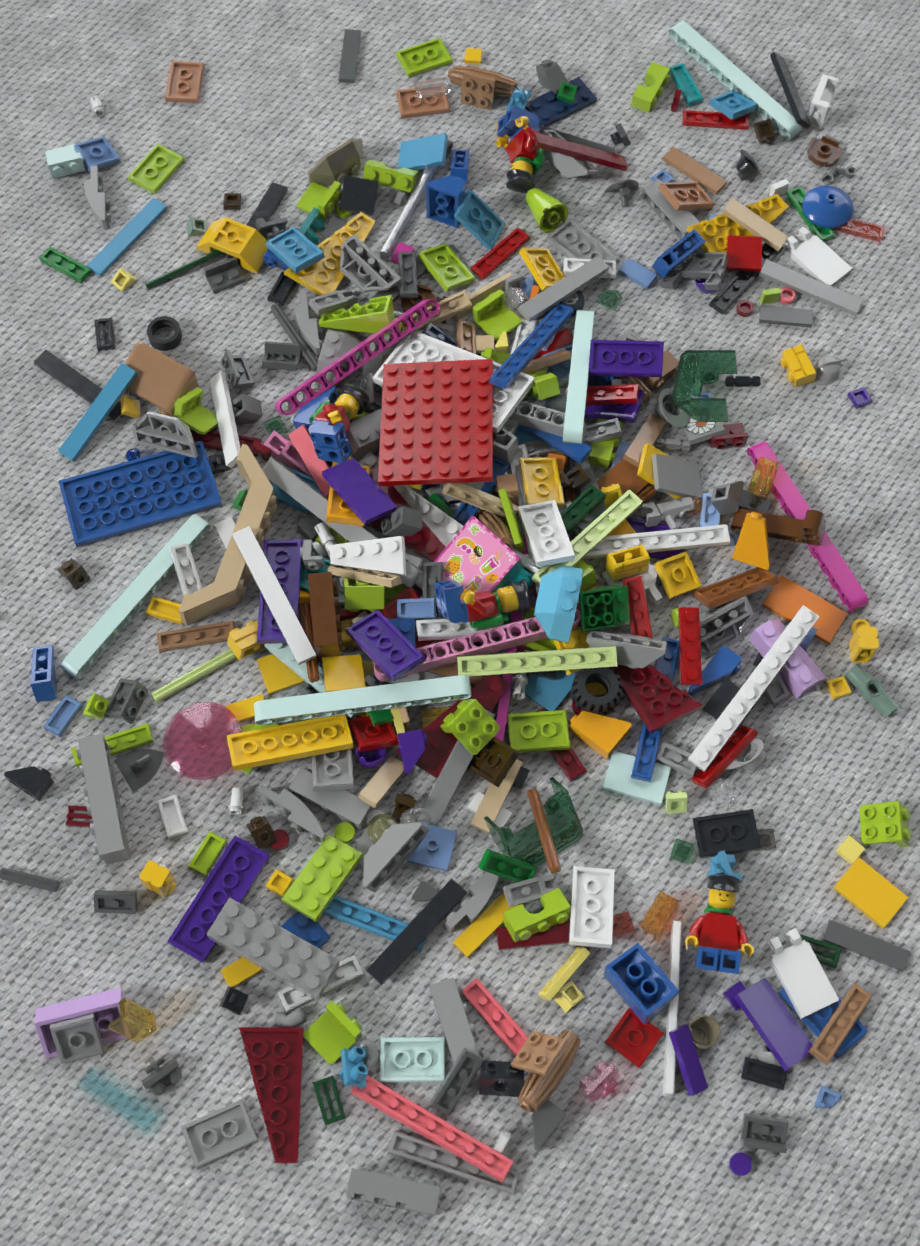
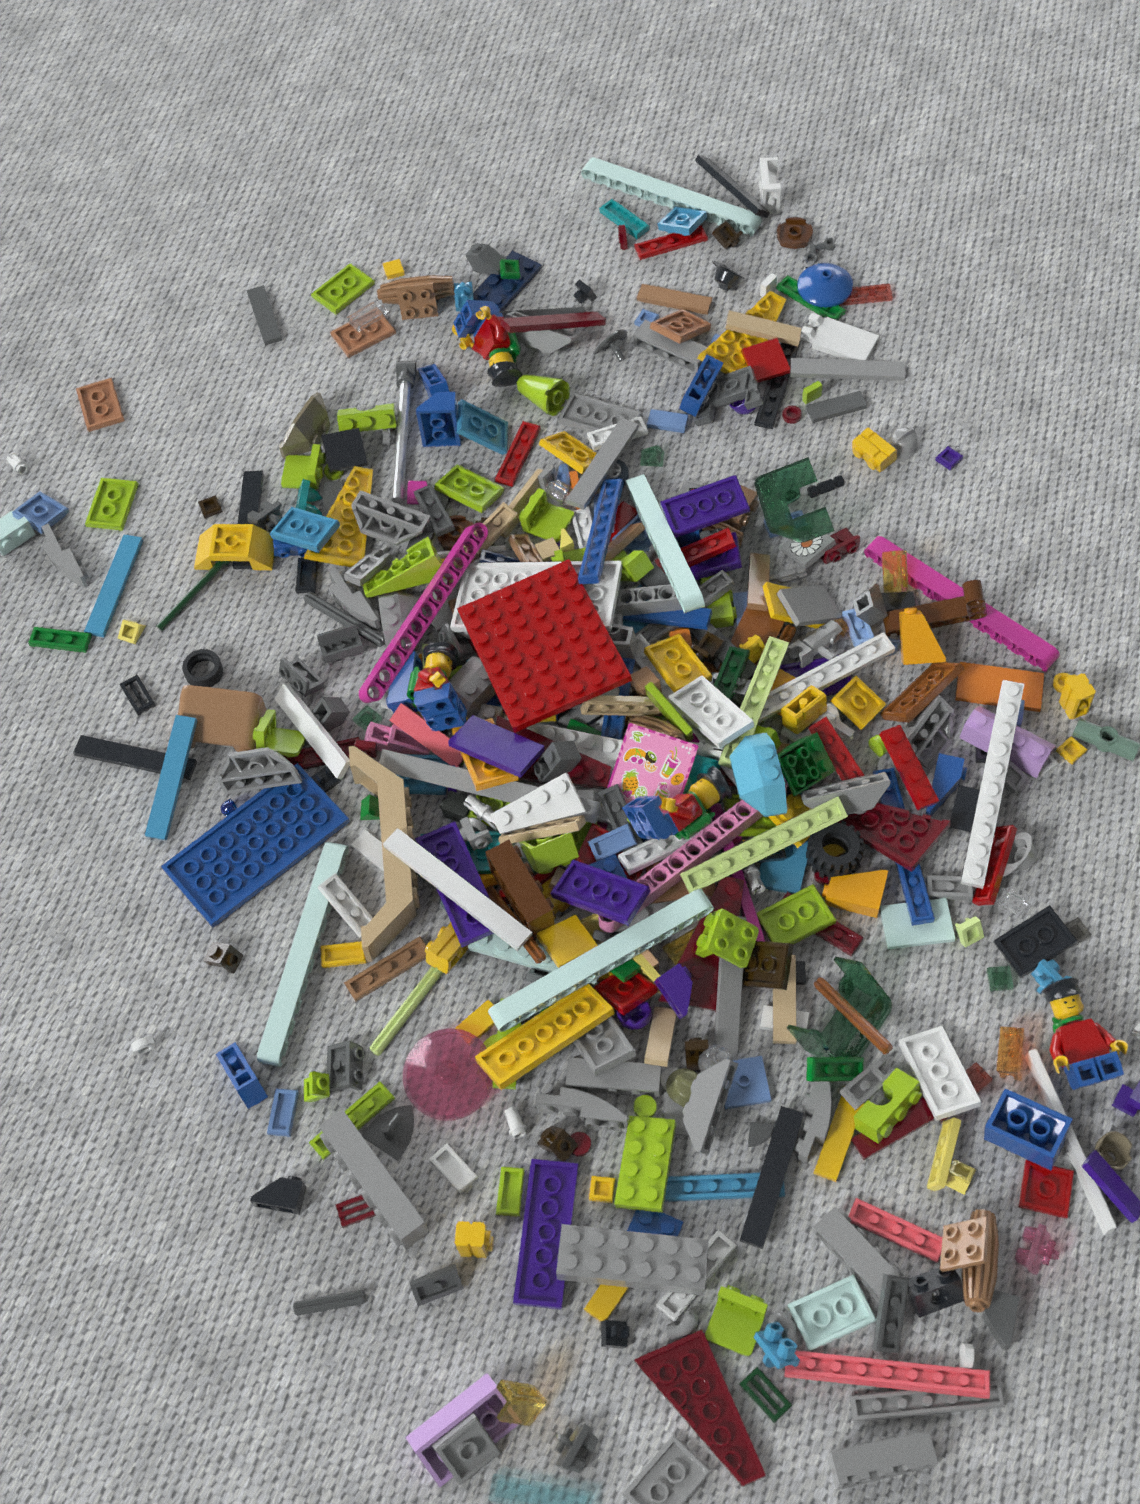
camera: 15 degrees left, 5 degrees down
(130, 407) = (202, 759): yellow tile -> none
(196, 226) = (183, 547): sand green slope -> none
(224, 275) = (238, 584): dark grey bracket -> none
(277, 675) = (494, 973): yellow tile -> none
(423, 152) = (390, 382): dark azure tile -> none
(646, 96) = (591, 245): lime arch -> none
(669, 411) = (769, 543): light grey piece -> none
(787, 295) = (829, 386): coral tile -> none

